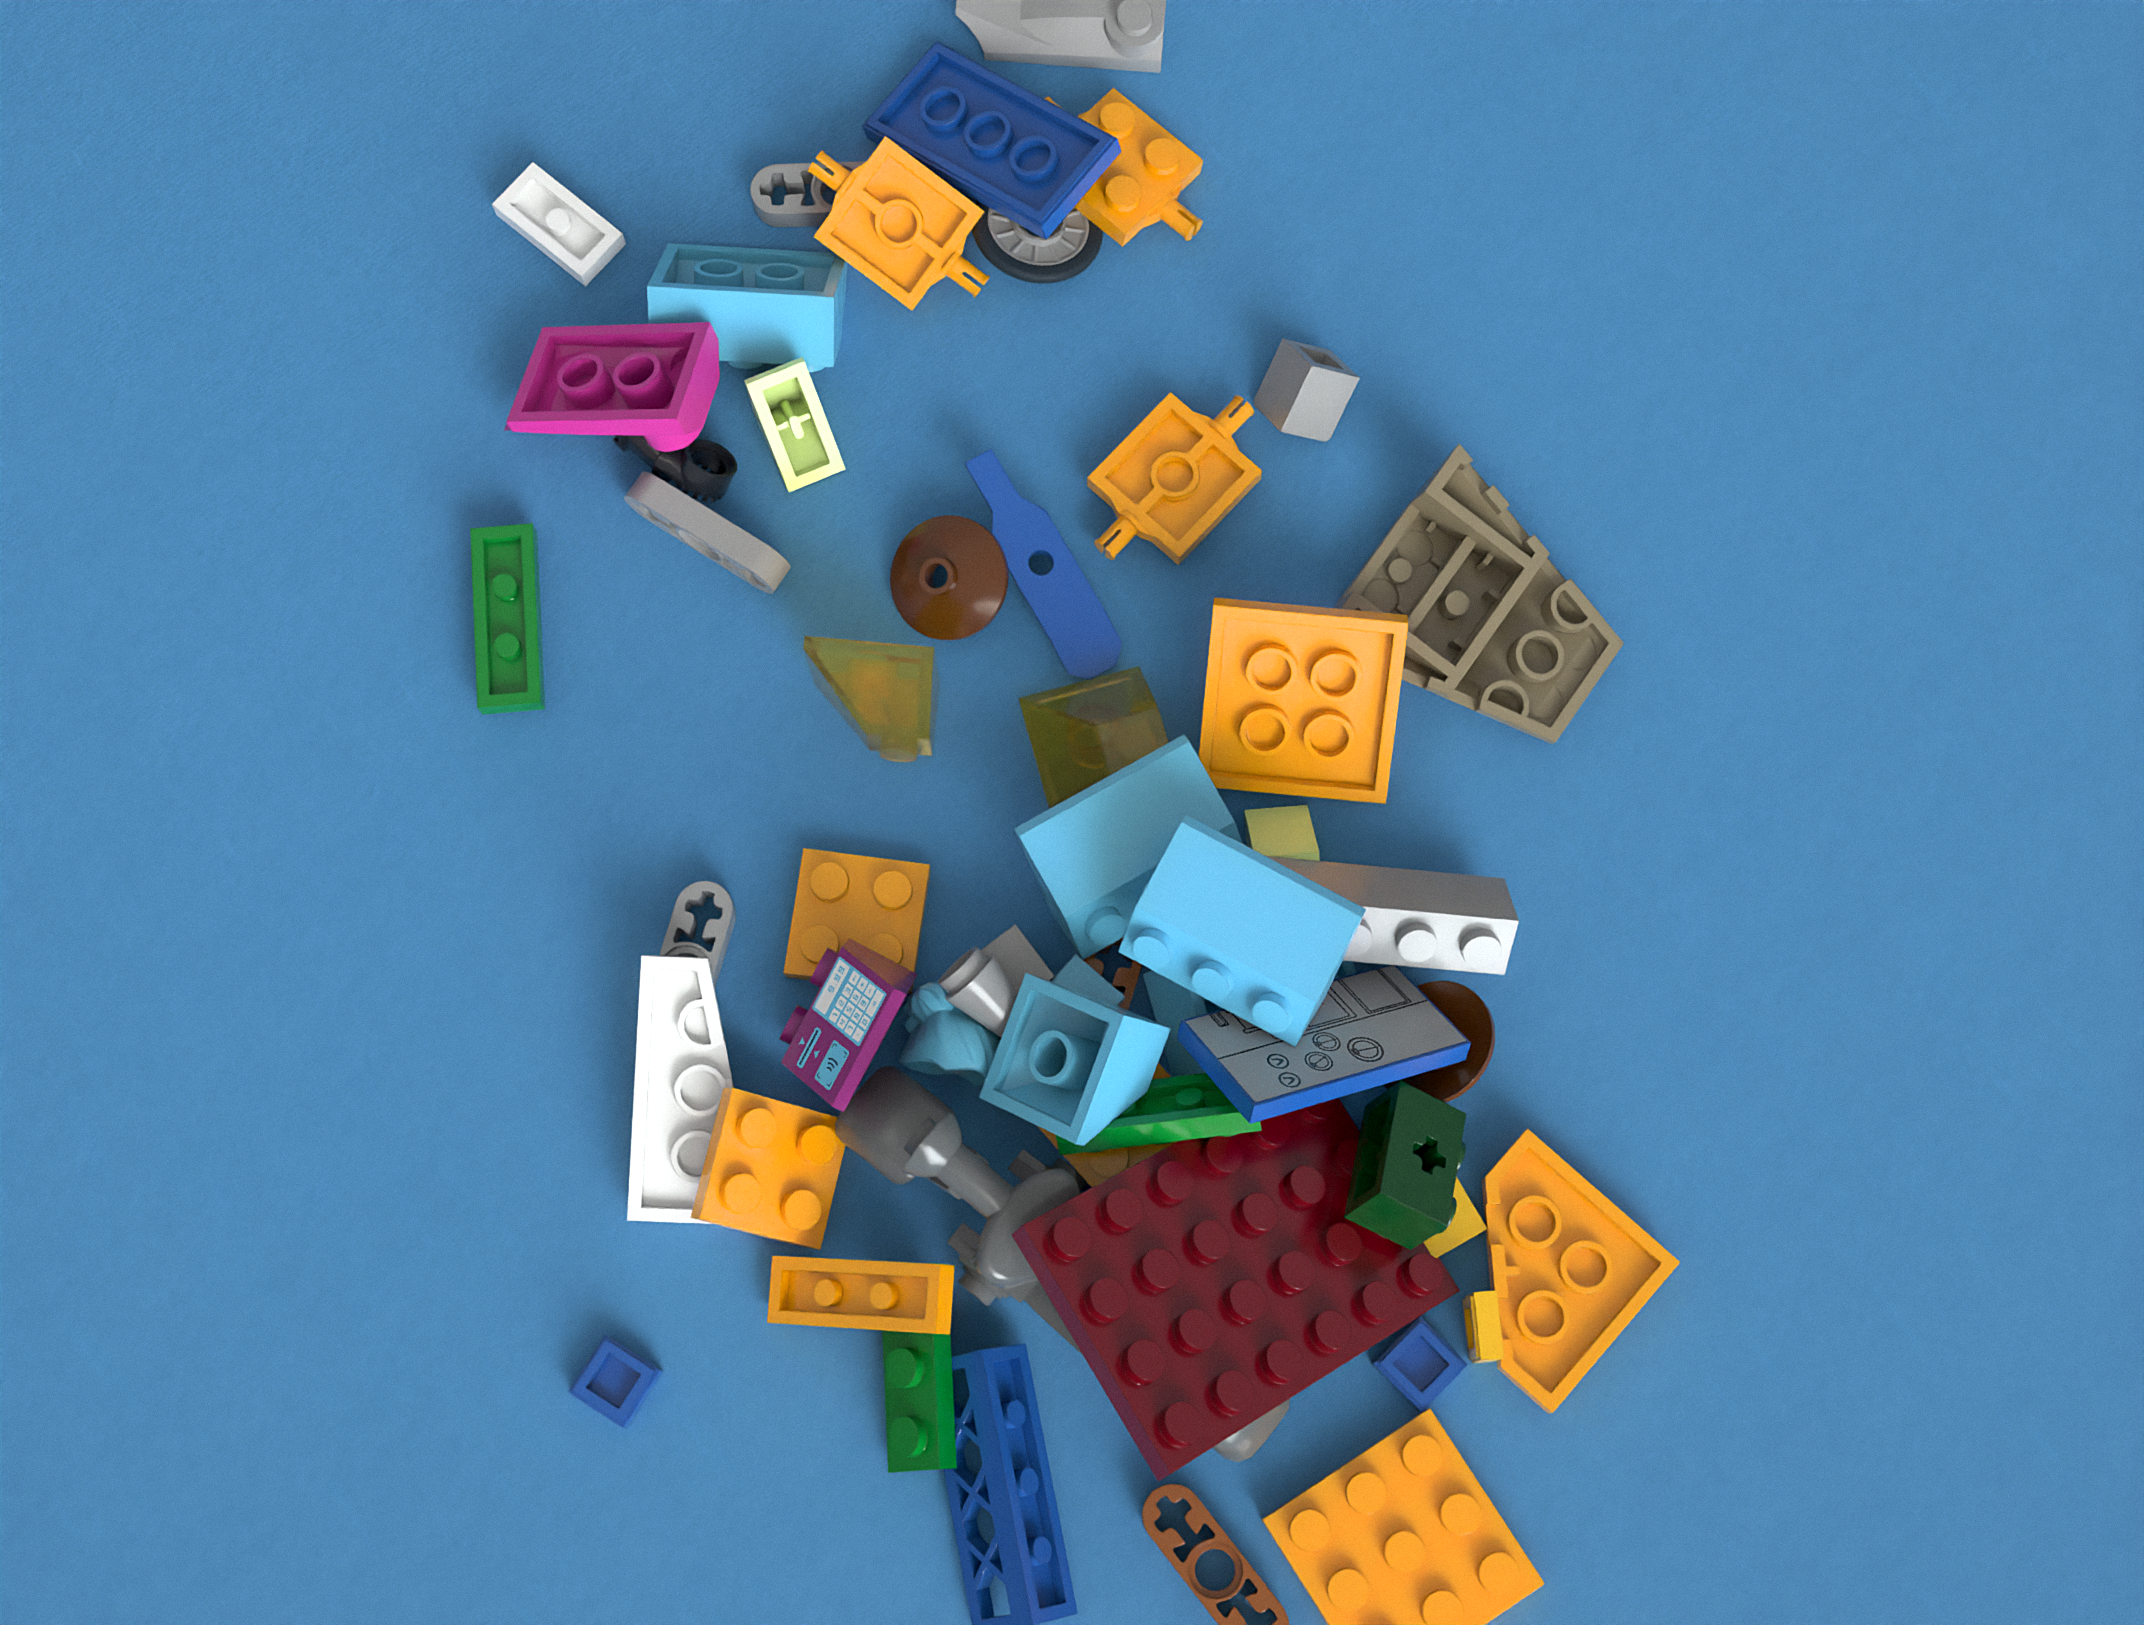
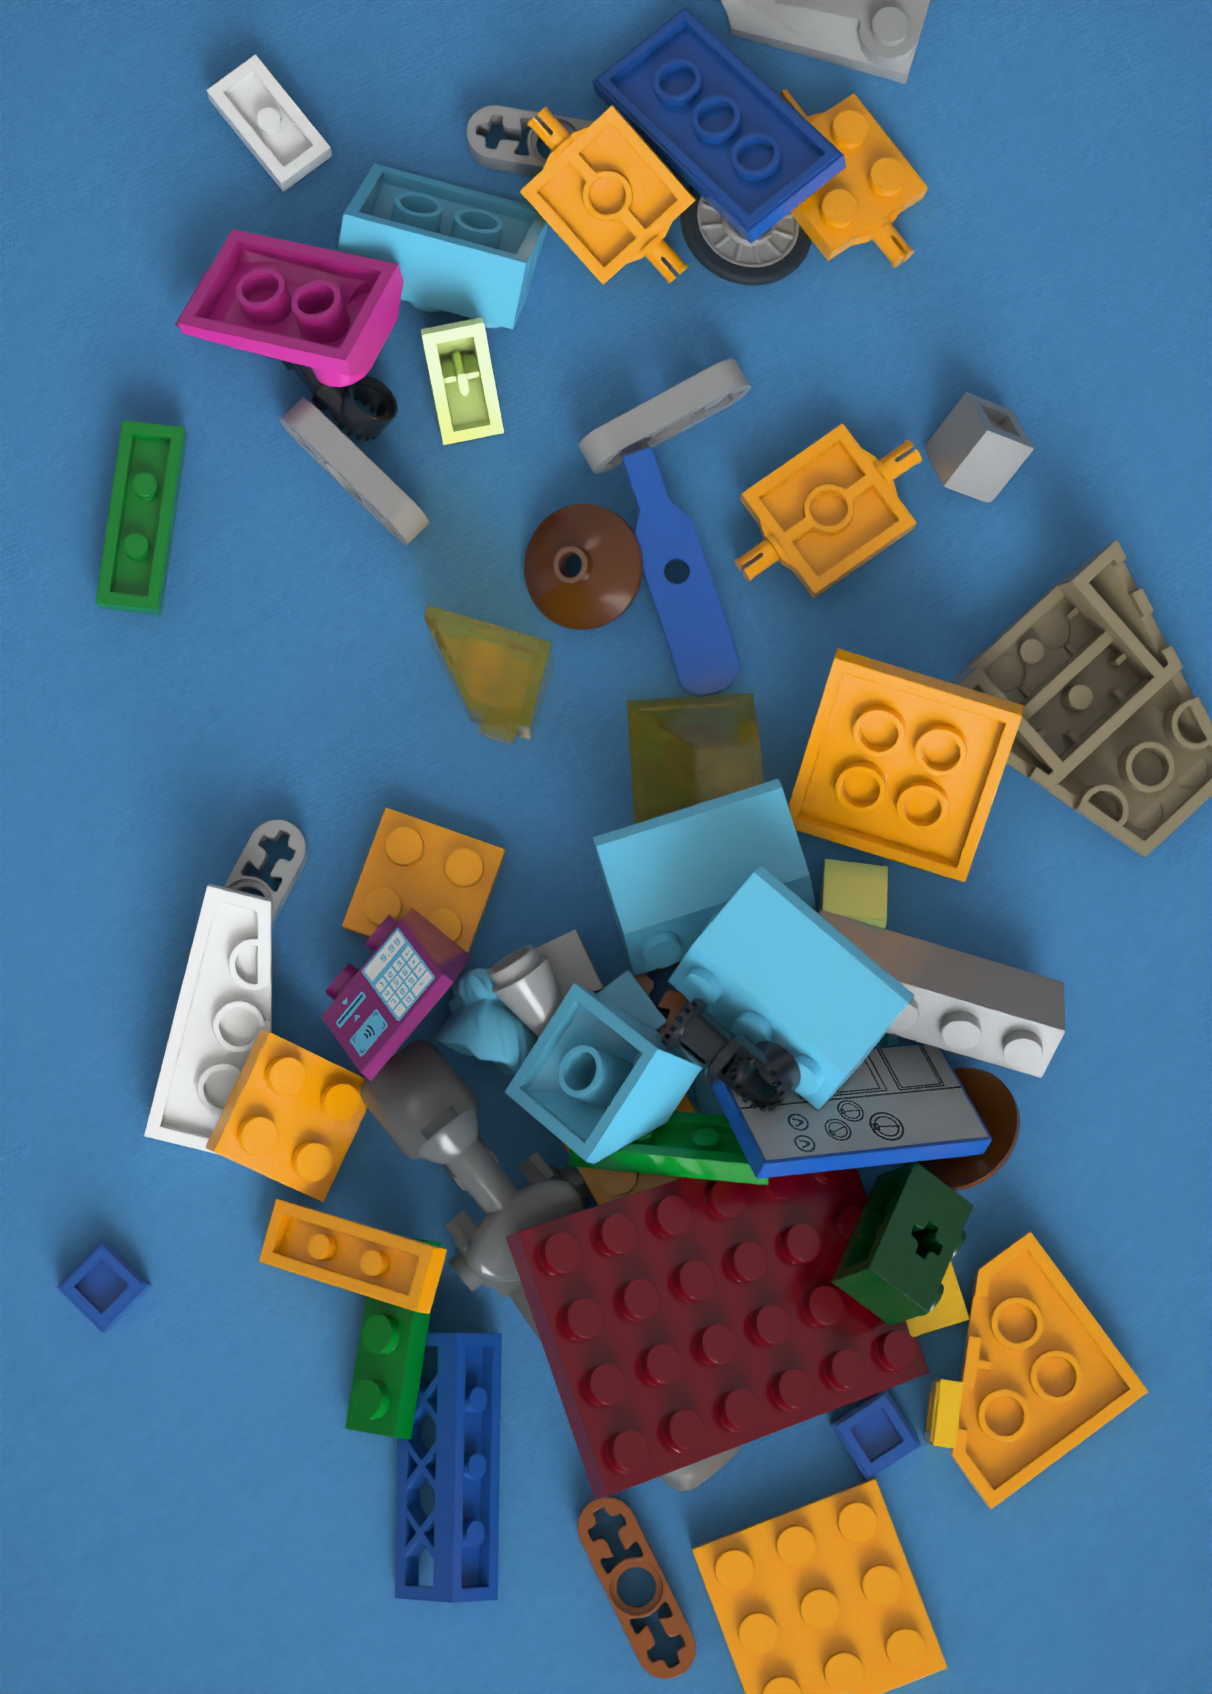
camera: 10 degrees right, 5 degrees up
(998, 419) = (665, 415): none -> light grey beam
(1200, 1009) = (733, 1057): none -> black connector

